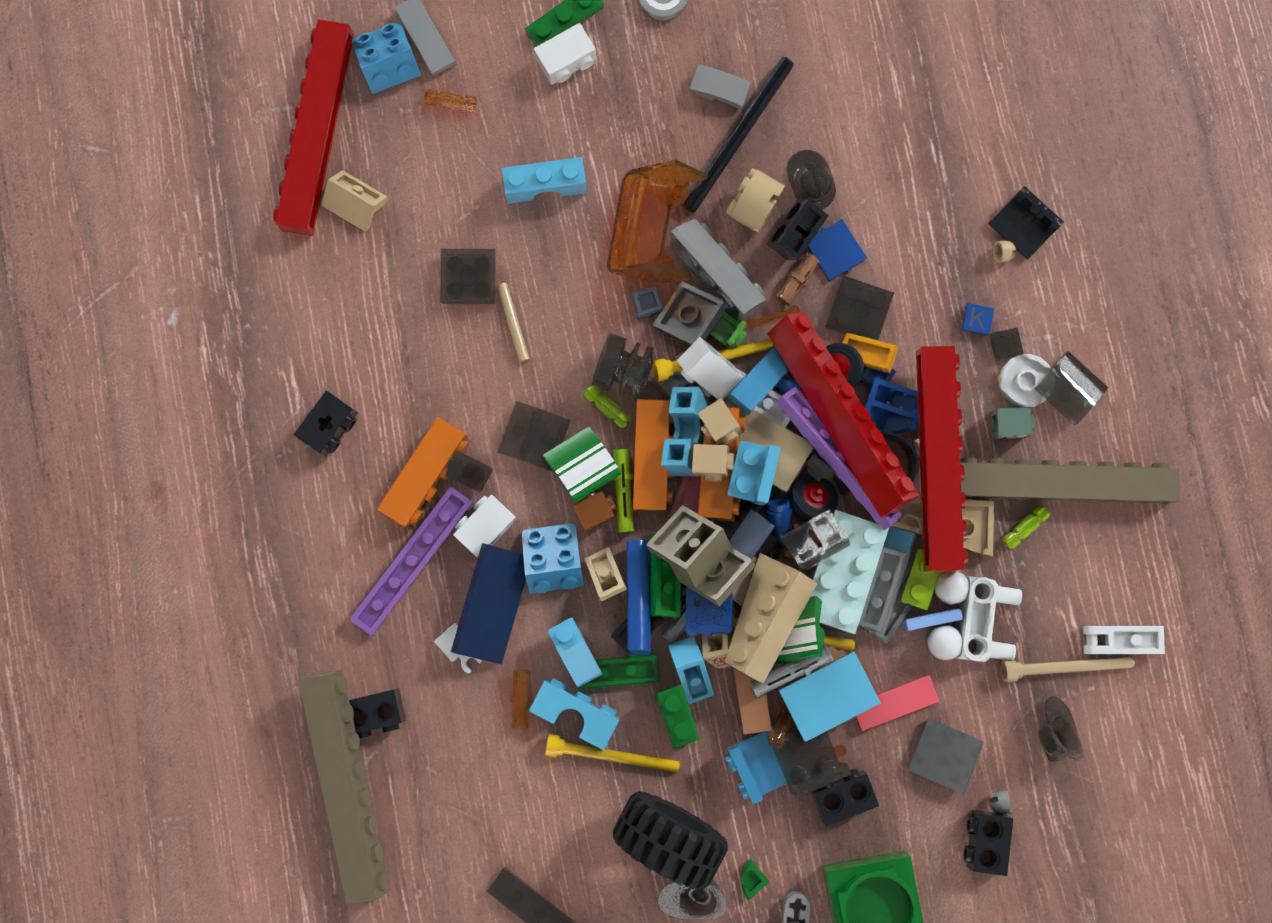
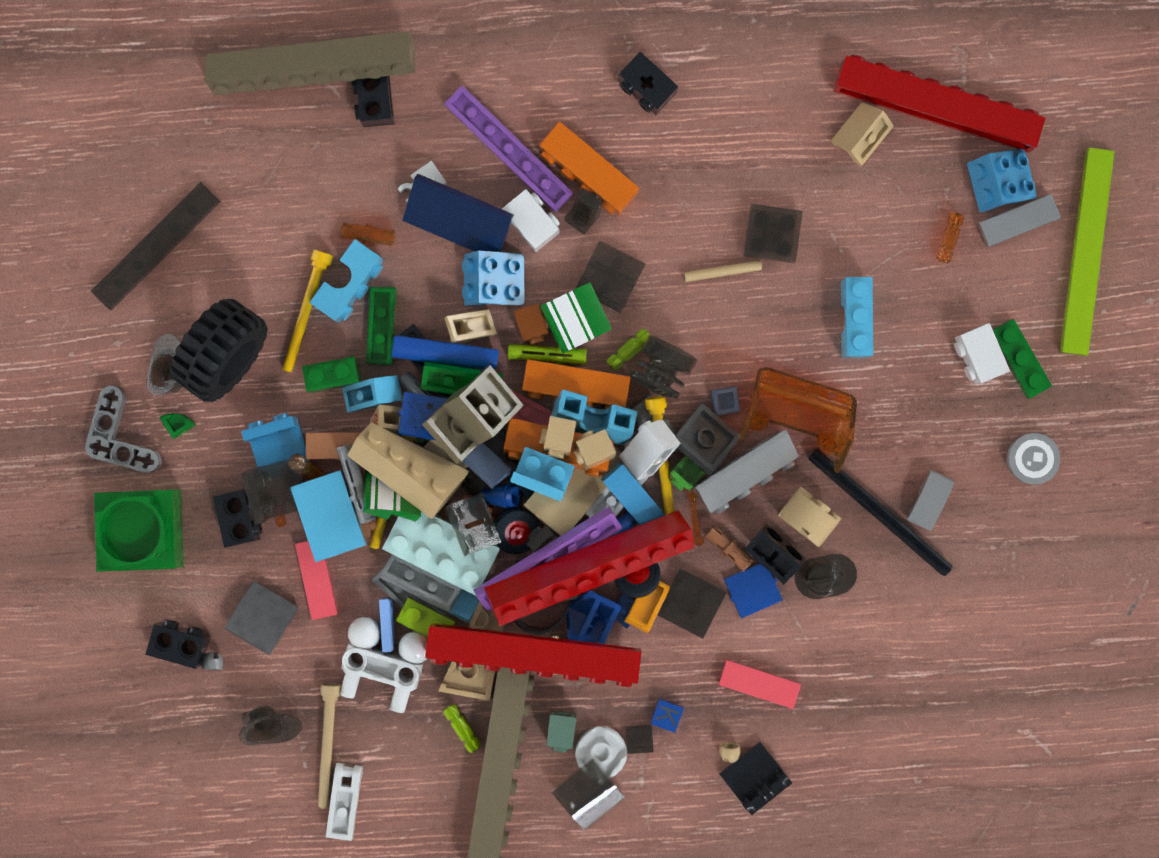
camera: 105 degrees right, 5 degrees up
(574, 652) = (402, 288): medium azure slope -> none
(930, 231) = (759, 684): none -> coral tile

